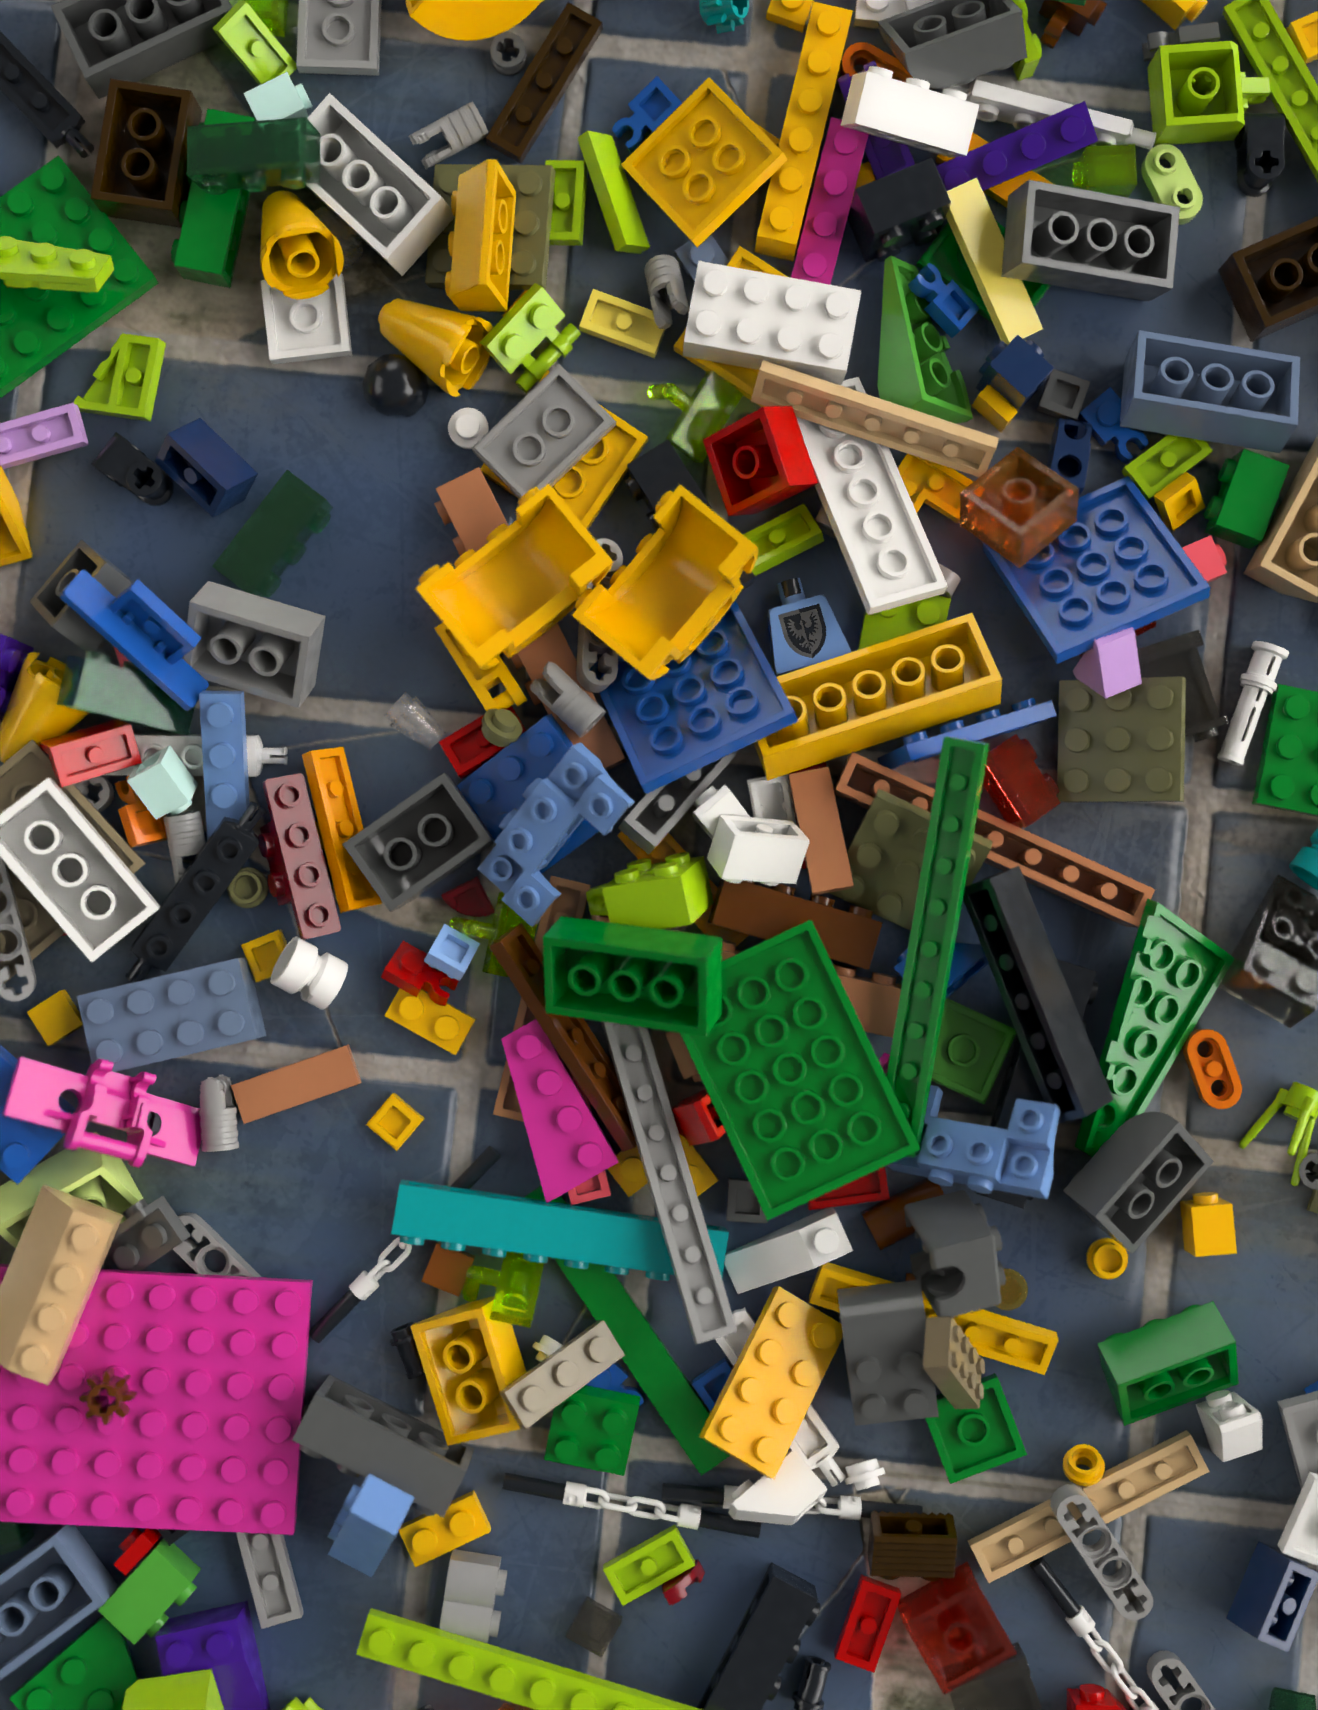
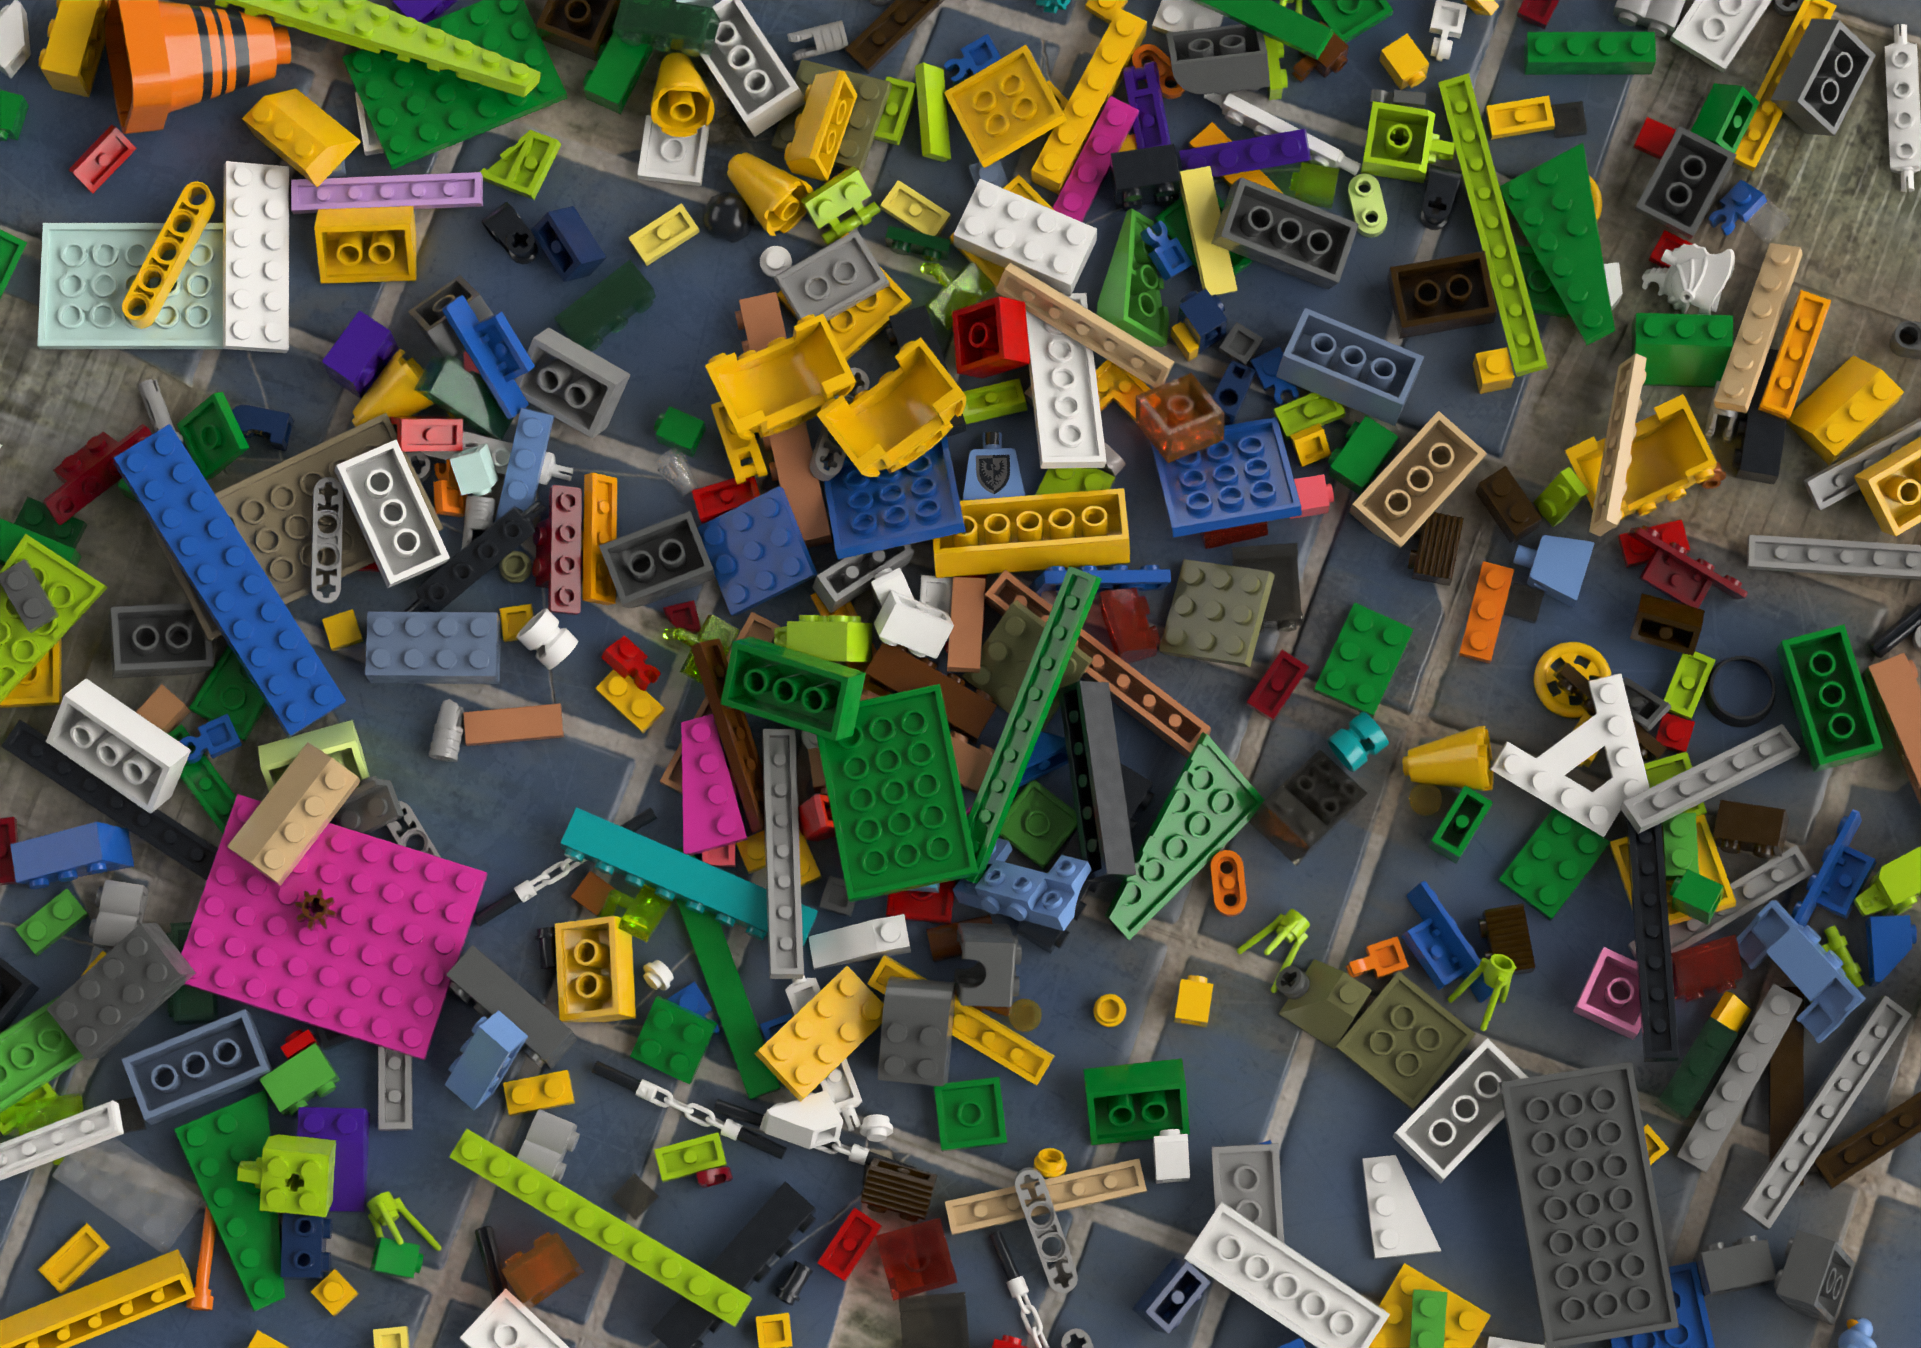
camera: 20 degrees right, 10 degrees down
(109, 1099) = (375, 694): piece -> none
(322, 427) = (664, 234): none -> light yellow plate
(395, 1121) = (582, 772): yellow tile -> none
(404, 670) = (679, 431): none -> green brick
(451, 952) = (660, 649): light blue tile -> none
(501, 727) = (742, 488): olive plate -> none
(543, 824) = (755, 567): medium blue bracket -> none
(561, 1374) = (662, 984): plate -> none
(567, 700) = (798, 479): light grey hinge -> none
(621, 364) = (930, 247): none -> dark green plate
(665, 289) = (953, 193): light grey hinge -> none
(910, 112) = (1169, 107): white brick -> none
(953, 1363) = (963, 1045): dark tan piece -> none
(1111, 664) = (1218, 548): lavender slope -> none
(1138, 1177) = (1145, 944): dark grey brick -> none
(1211, 810) = (1277, 685): none -> dark red plate
(1256, 685) = (1334, 595): white pin -> none

